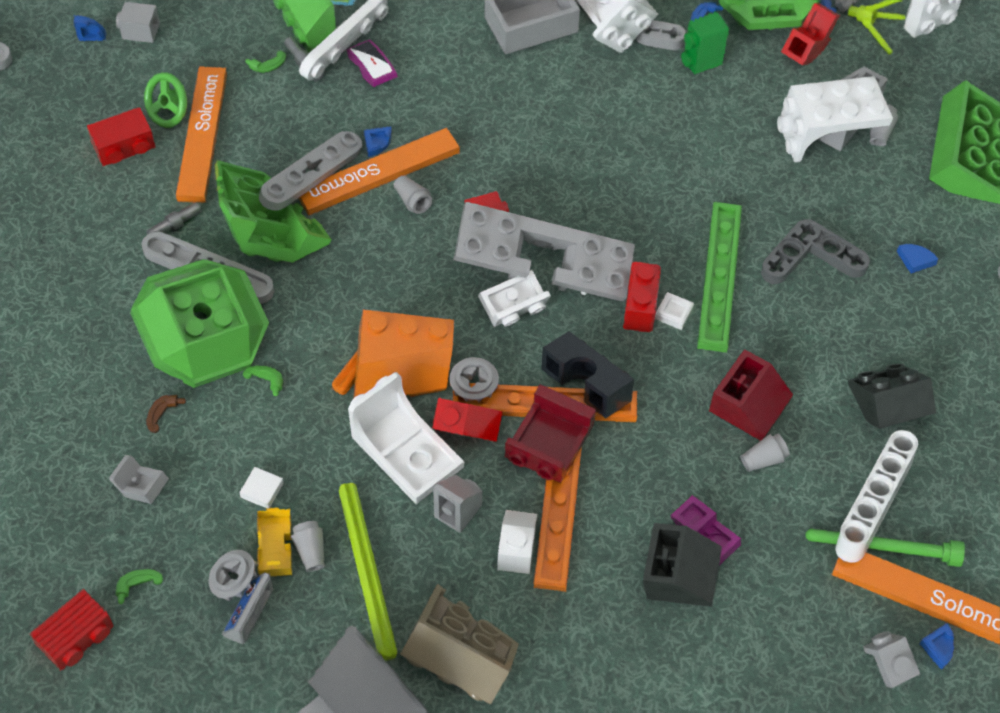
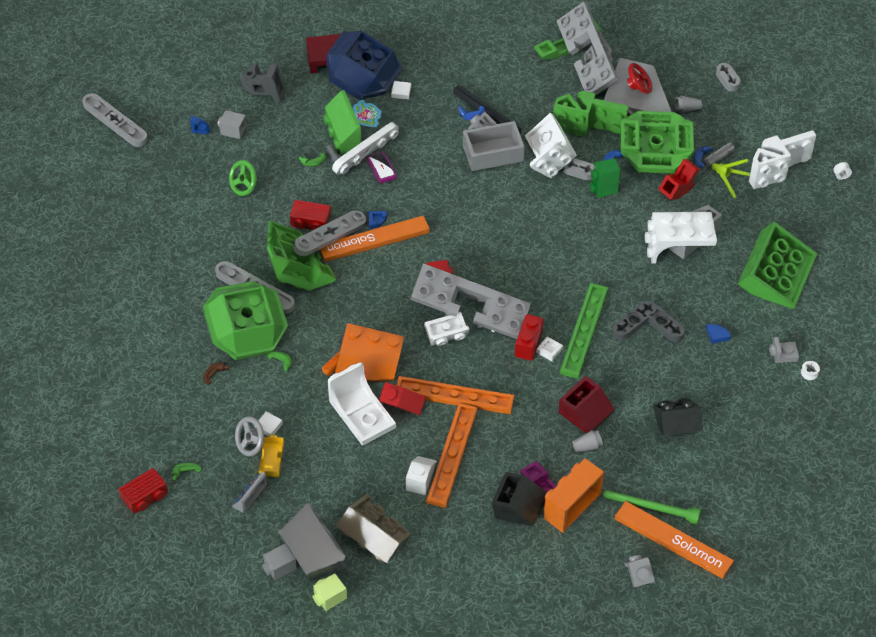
camera: 10 degrees right, 5 degrees down
(121, 136) = (211, 198): red brick -> none
(138, 481) = (193, 411): light grey bracket -> none
(175, 219) = (238, 255): flat silver bar -> none
(201, 135) = (263, 202): orange tile -> none
(233, 561) = (248, 465): light grey gear -> none
(237, 511) = (251, 436): none -> light grey piece
(275, 145) = (309, 215): none -> red brick
(309, 544) = (292, 459): light grey cone -> none
(367, 571) = (325, 479): lime axle -> none
(413, 194) = (393, 256): light grey cone -> none
(456, 501) = (386, 446): light grey slope -> none
(466, 370) = (407, 369): light grey gear -> none
(550, 434) = (453, 413): dark red panel -> none
(605, 384) = (492, 387): black arch -> none
(765, 546) = (573, 495): none -> orange piece
(876, 496) = (651, 474): white beam -> none
(880, 135) = (713, 251): light grey cone -> none
(939, 645) = (672, 567): blue tile -> none

